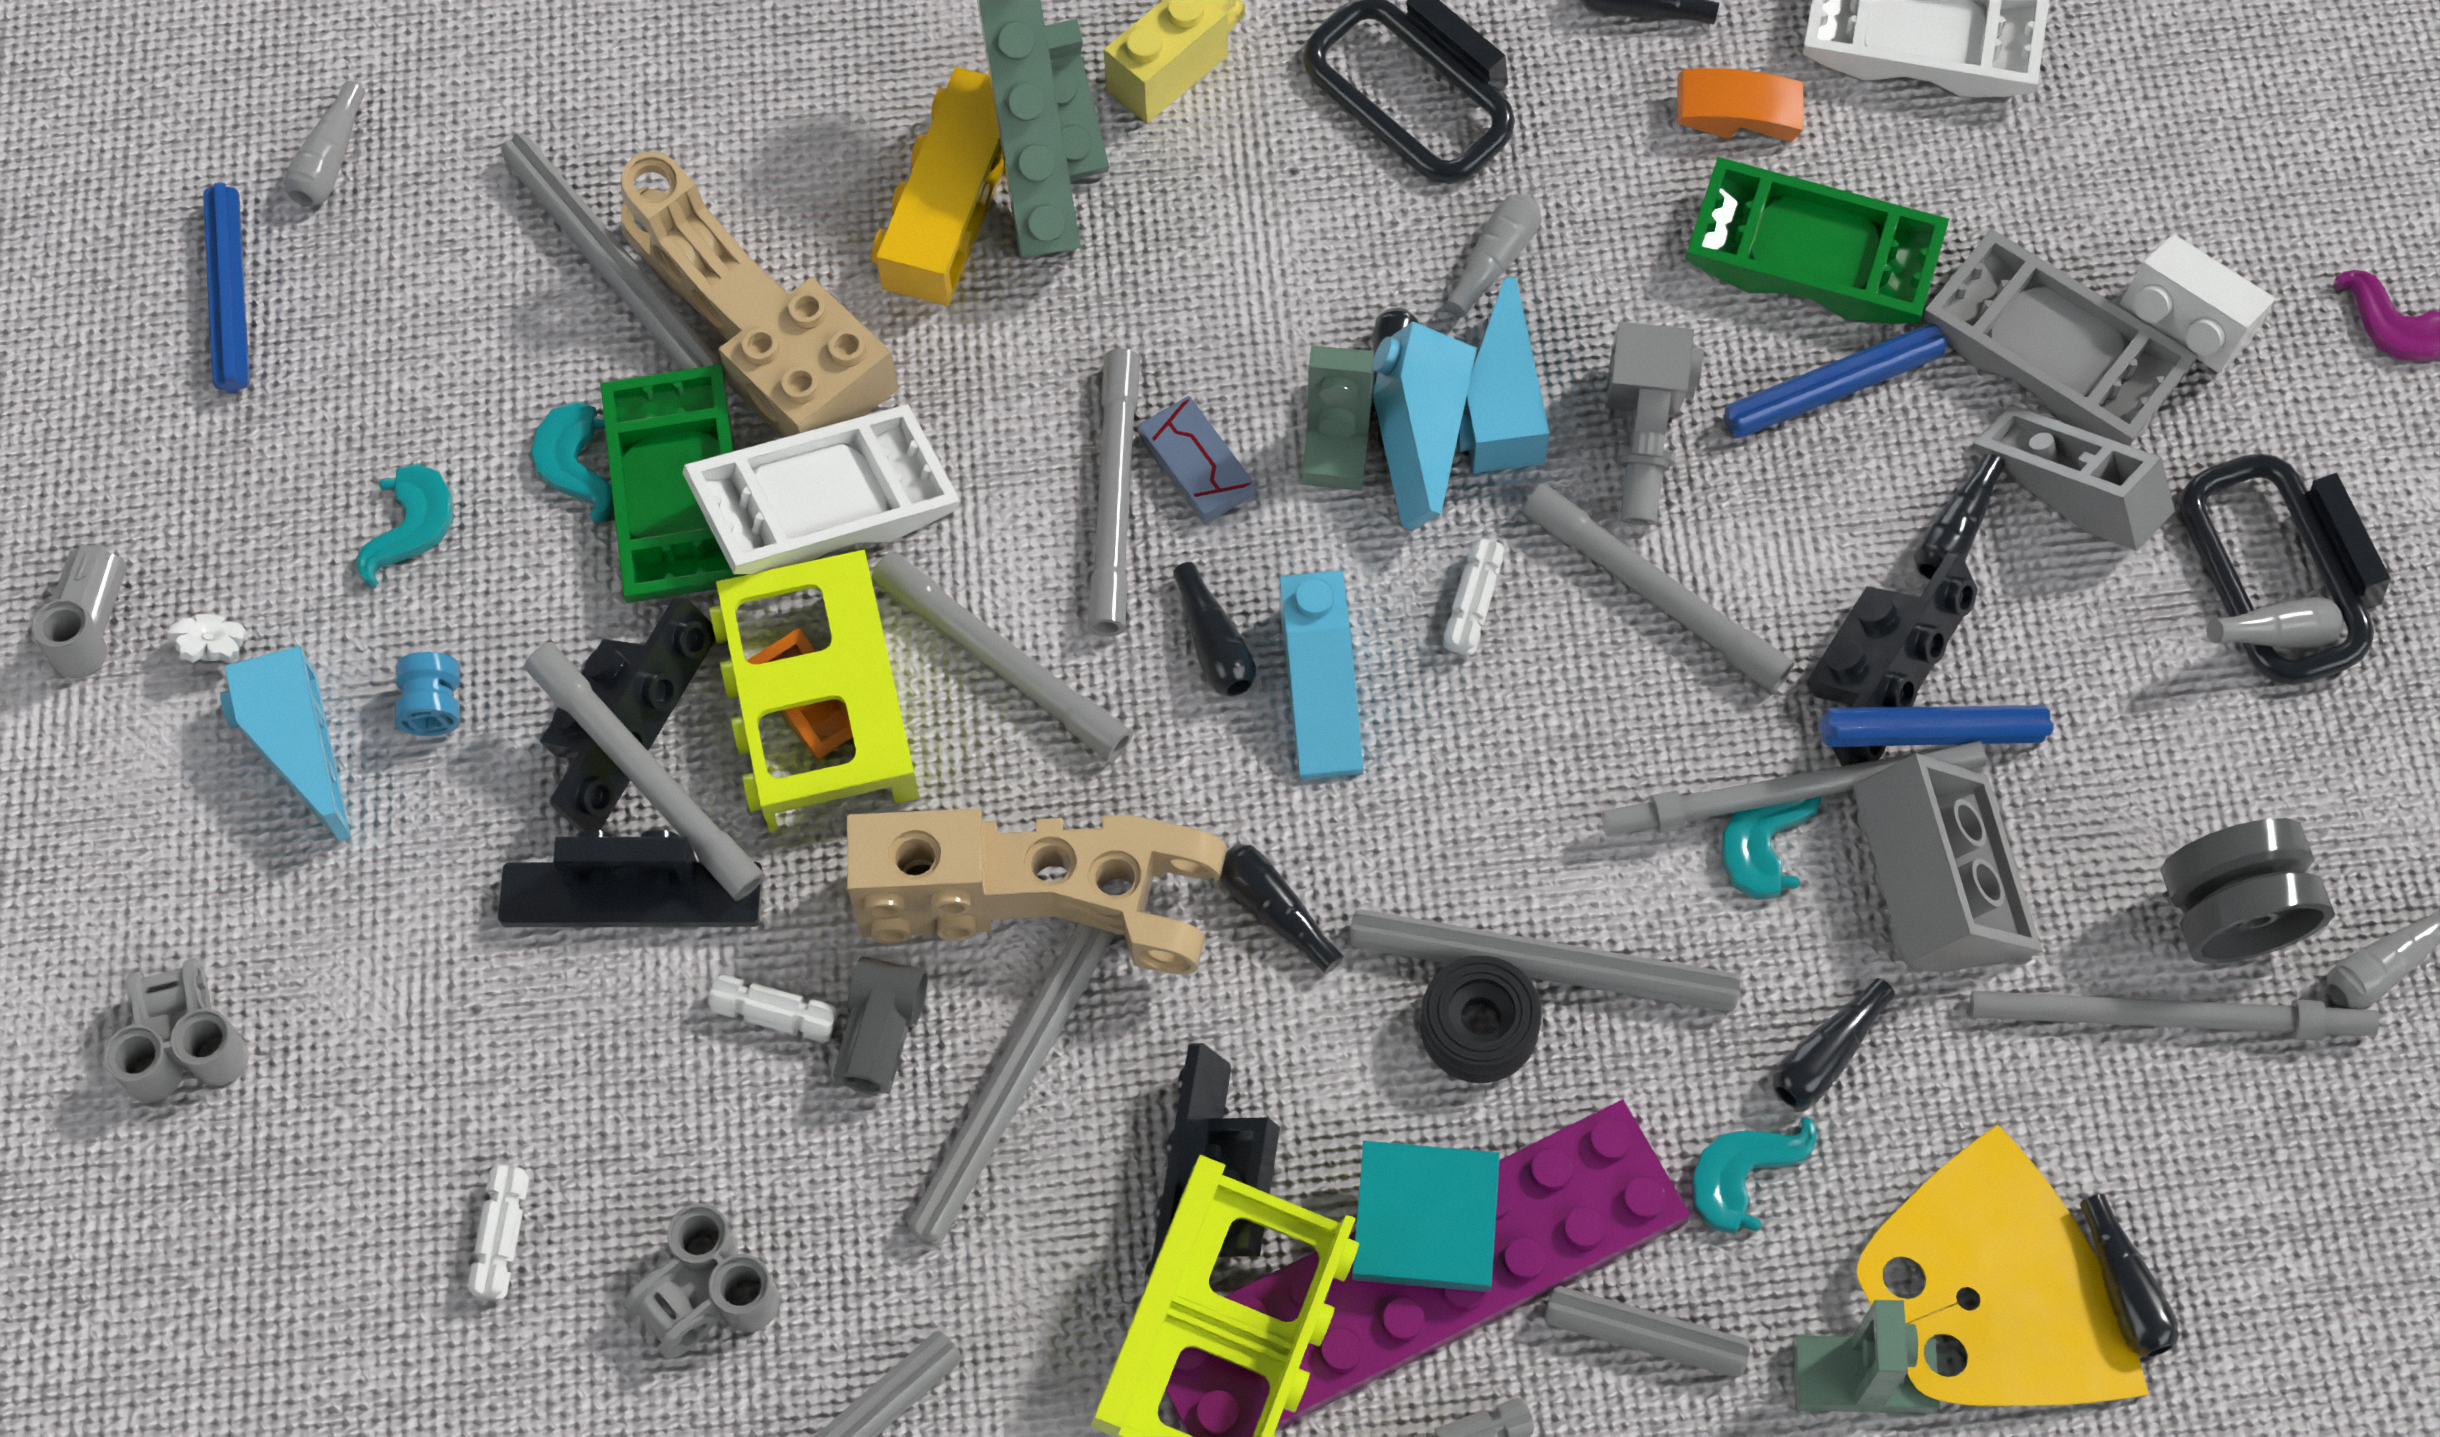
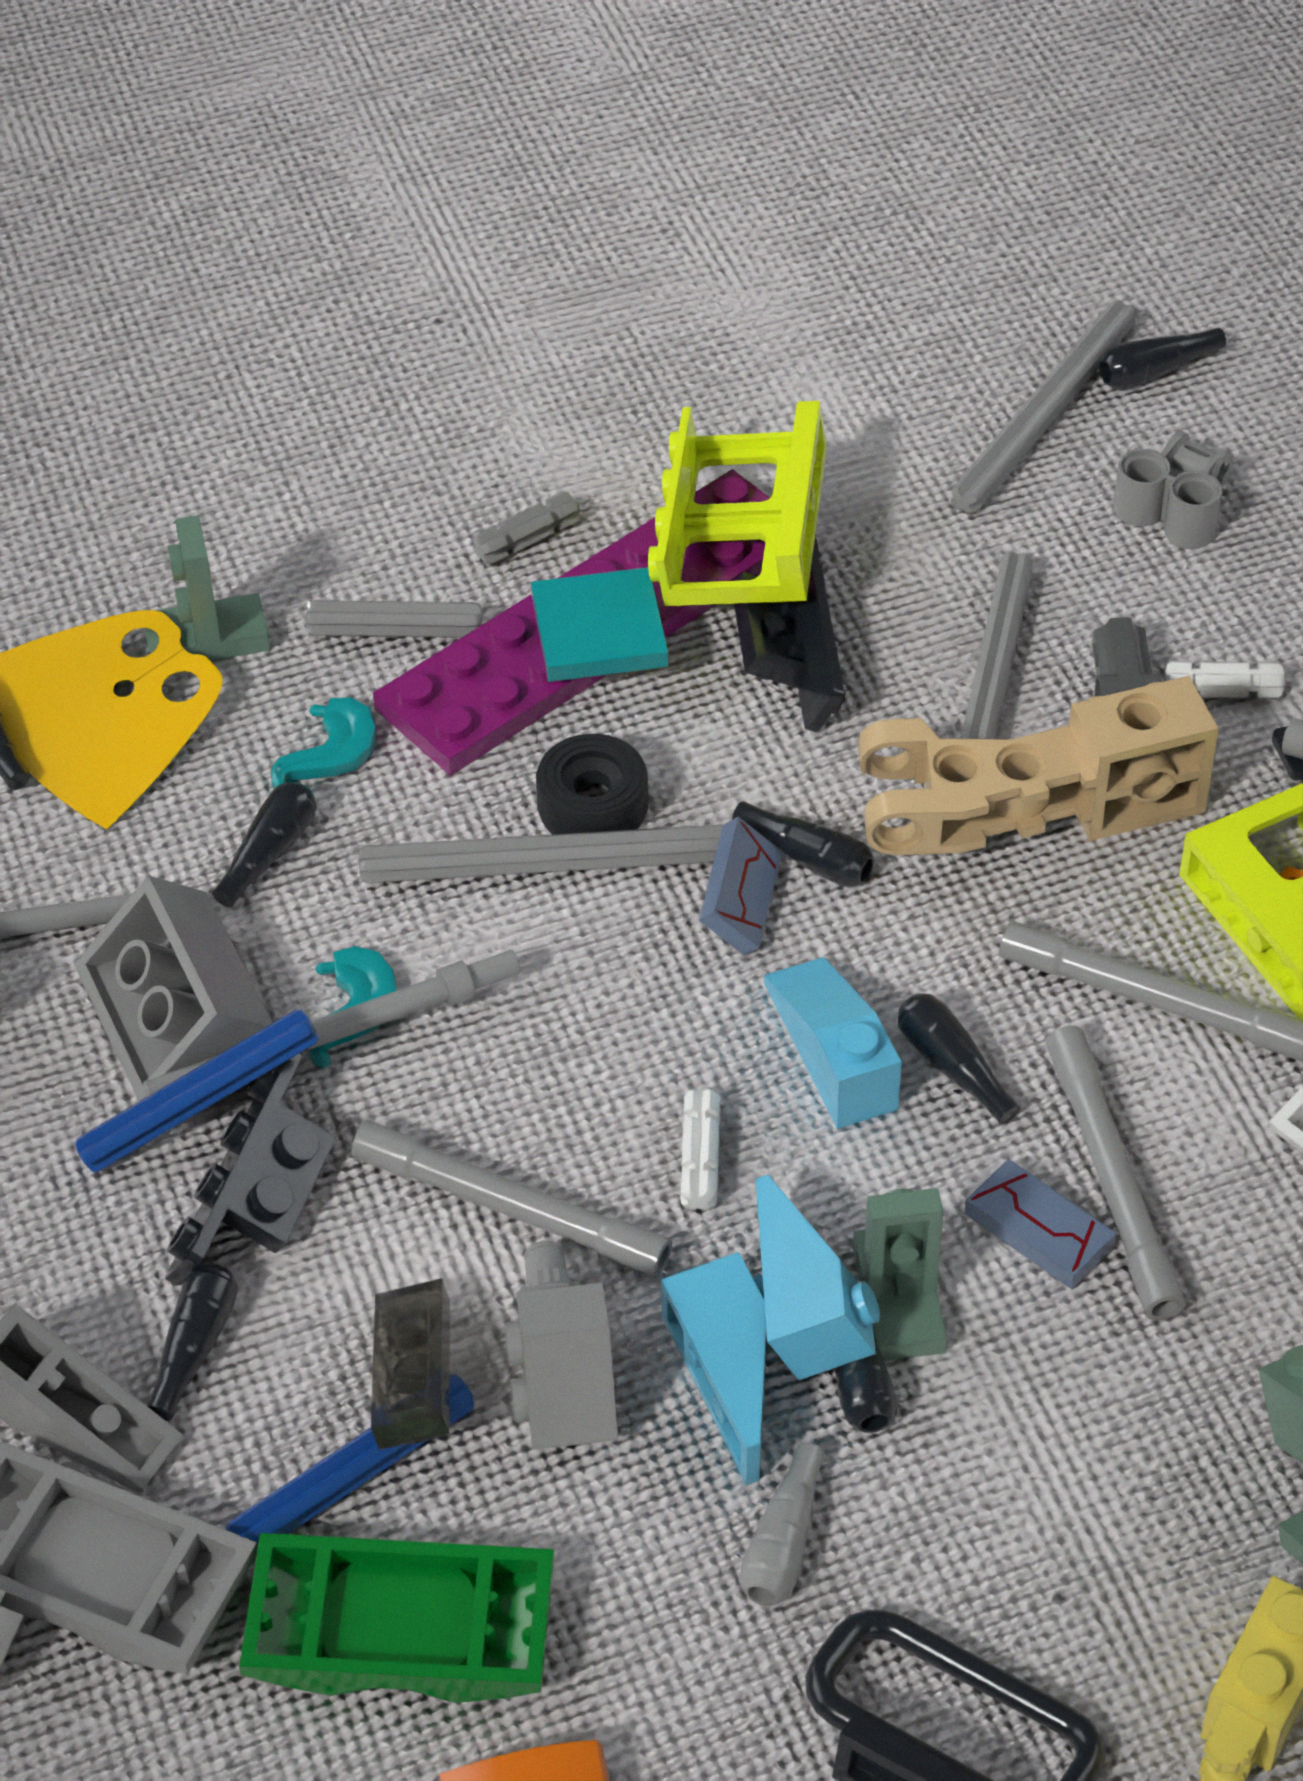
camera: 165 degrees right, 15 degrees down
(1360, 857) = (740, 886): none -> sand blue tile
(1776, 422) = (411, 1365): none -> clear smoke plate

